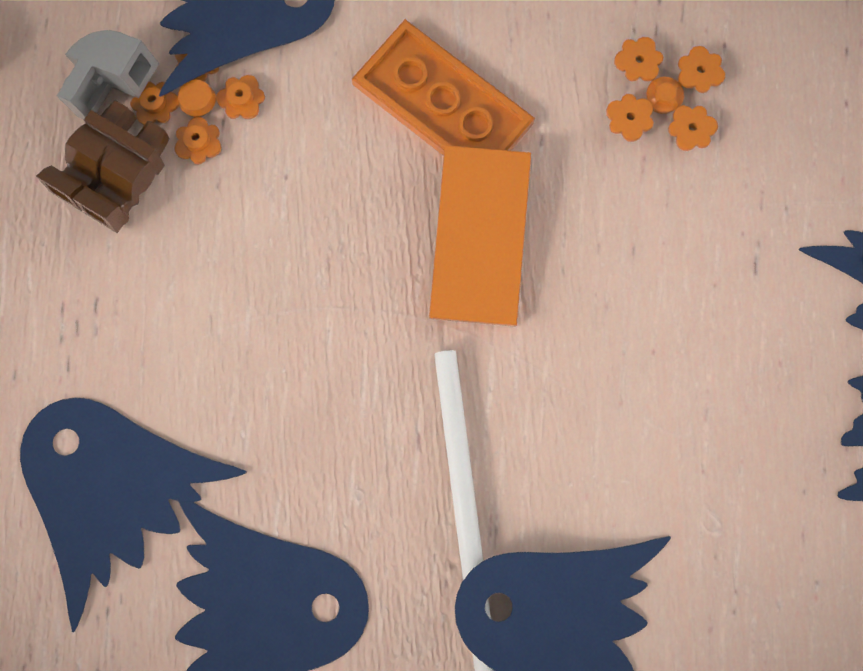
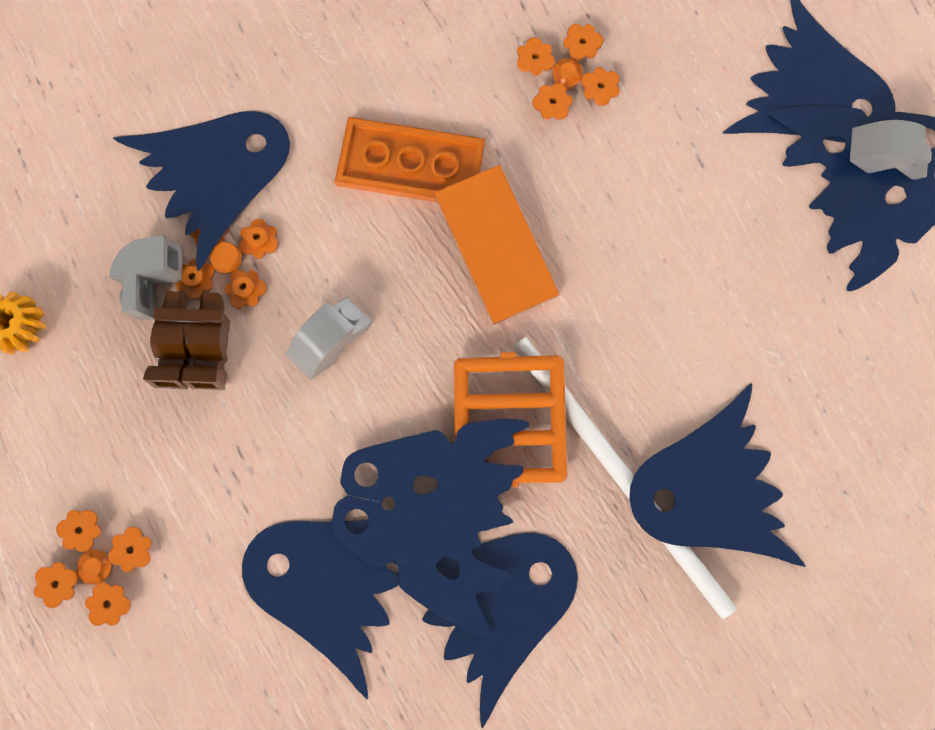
camera: 30 degrees left, 0 degrees up
(247, 231) = (325, 336): none -> light grey brick
(248, 492) = (436, 523): none -> dark blue piece
(421, 473) = (553, 399): none -> orange bar

